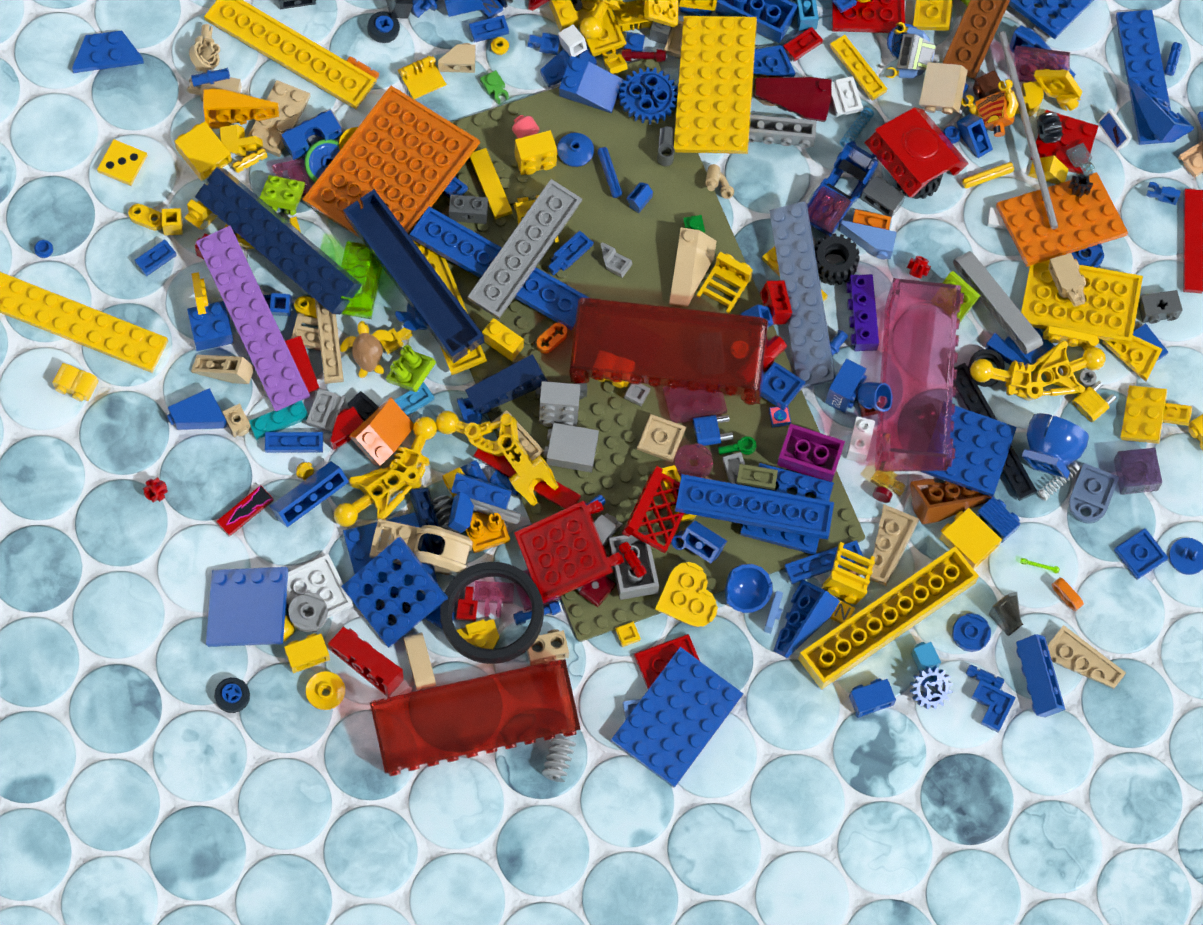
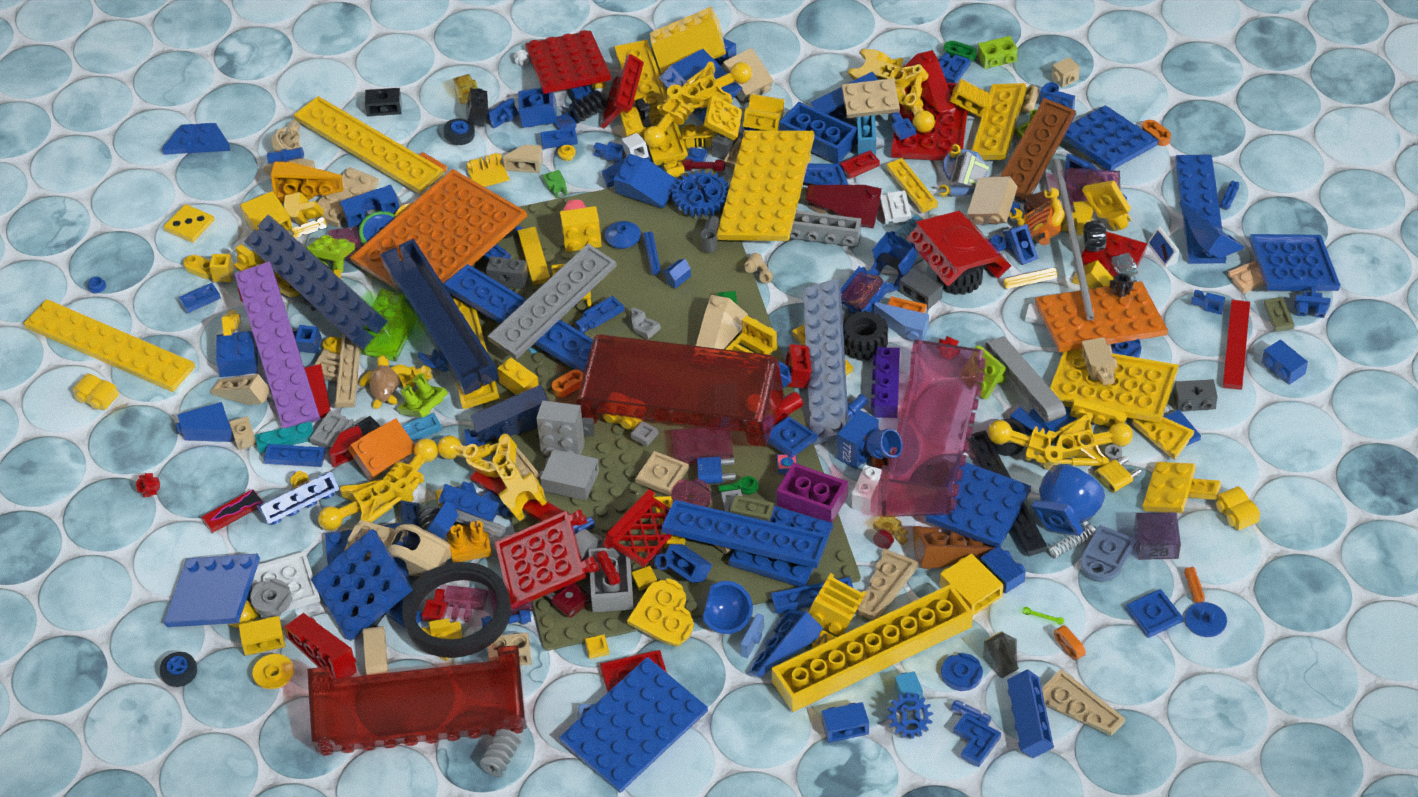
camera: 15 degrees right, 20 degrees down
(663, 560) = (644, 578): none -> yellow tile
(1175, 520) = (1194, 584): none -> orange axle

